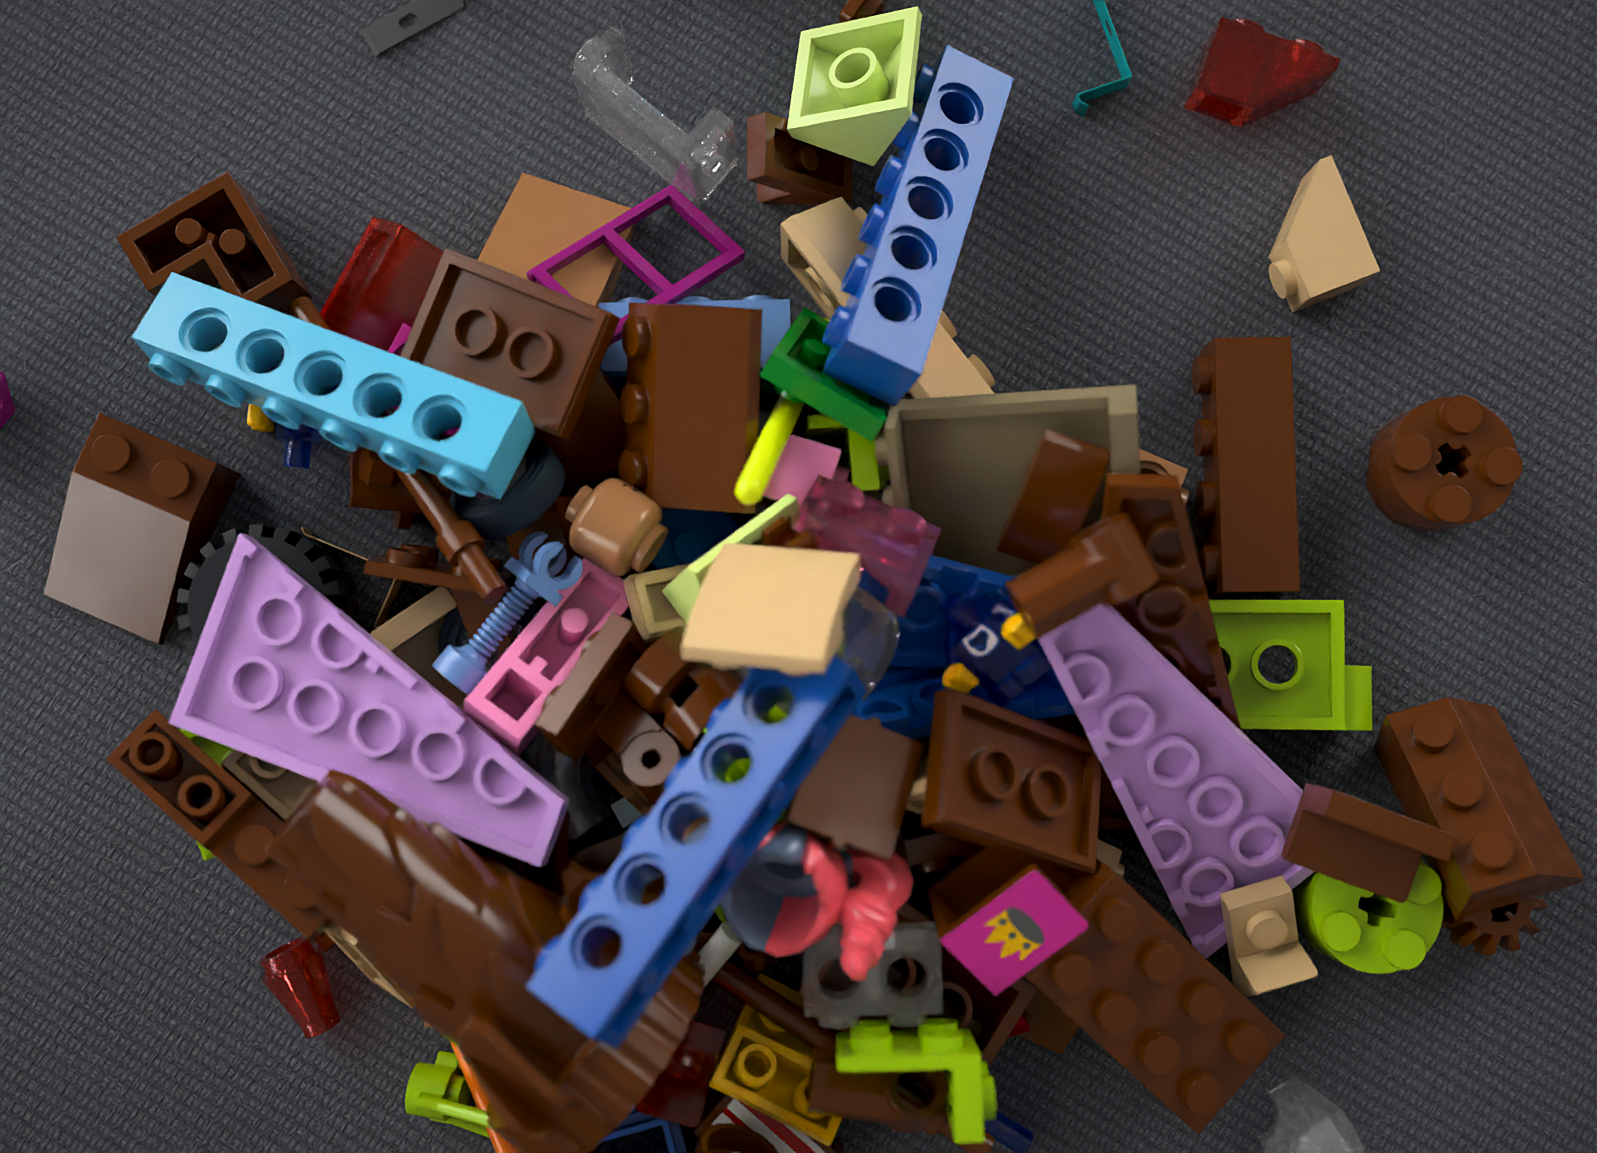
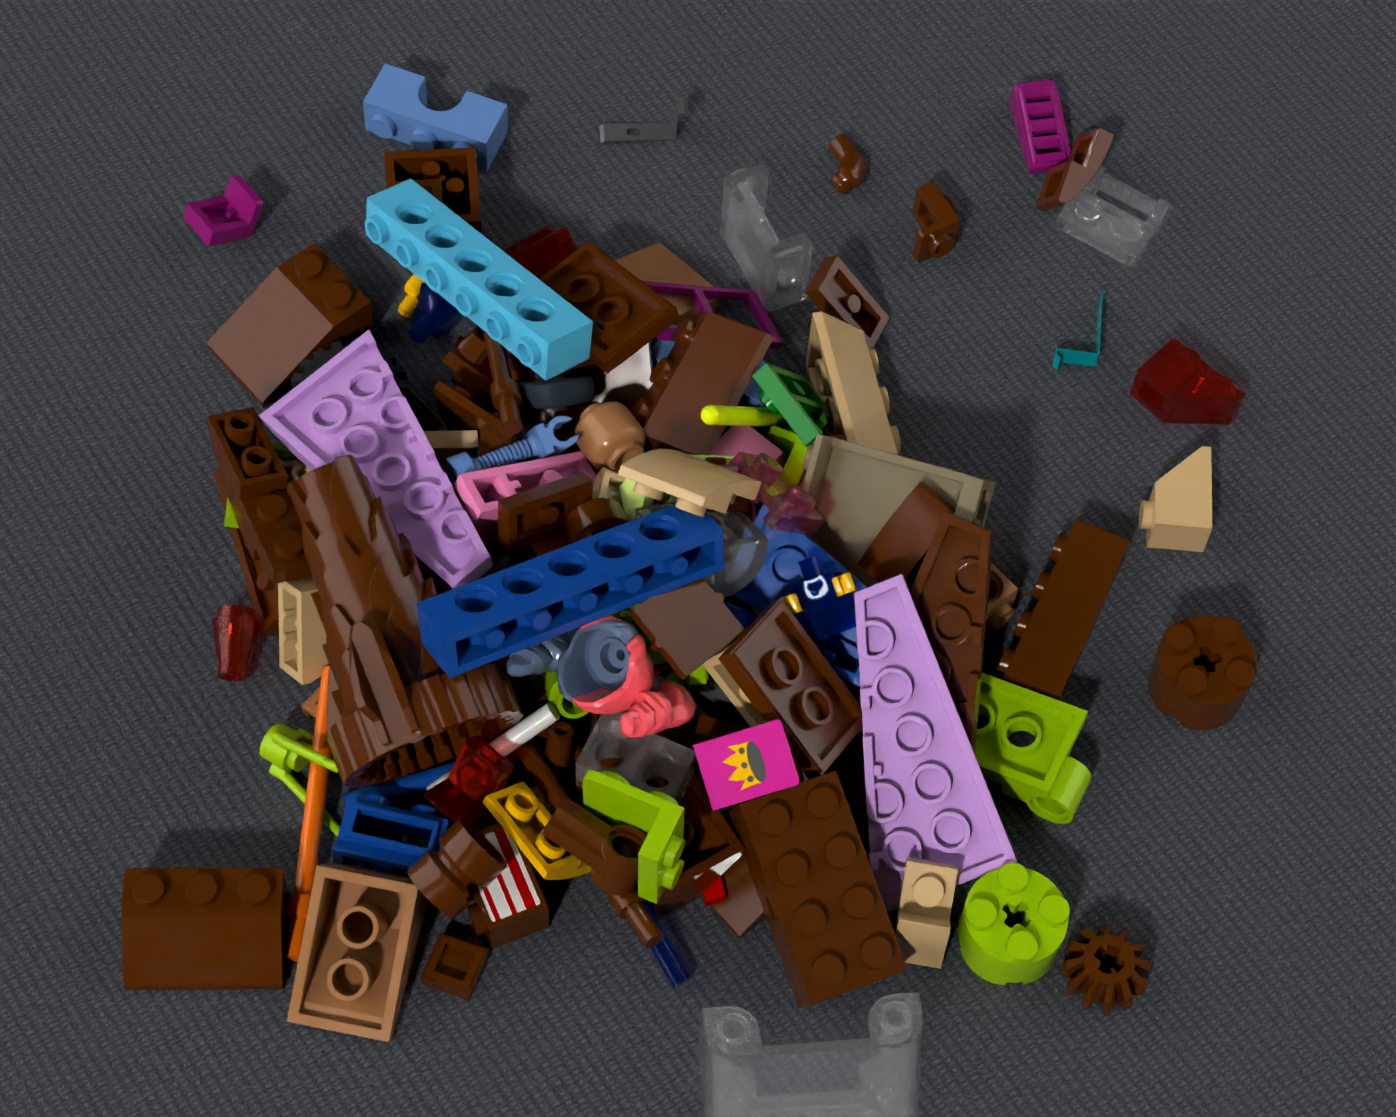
camera: 25 degrees right, 25 degrees down
(202, 135) = (399, 111): none -> medium blue arch
(856, 84) = (904, 273): yellowish green slope -> none
(918, 229) = (902, 354): brick -> none
(1100, 568) = (914, 554): reddish brown piece -> none
(1361, 842) = (1023, 847): reddish brown panel -> none
(1466, 777) = (1121, 884): reddish brown slope -> none

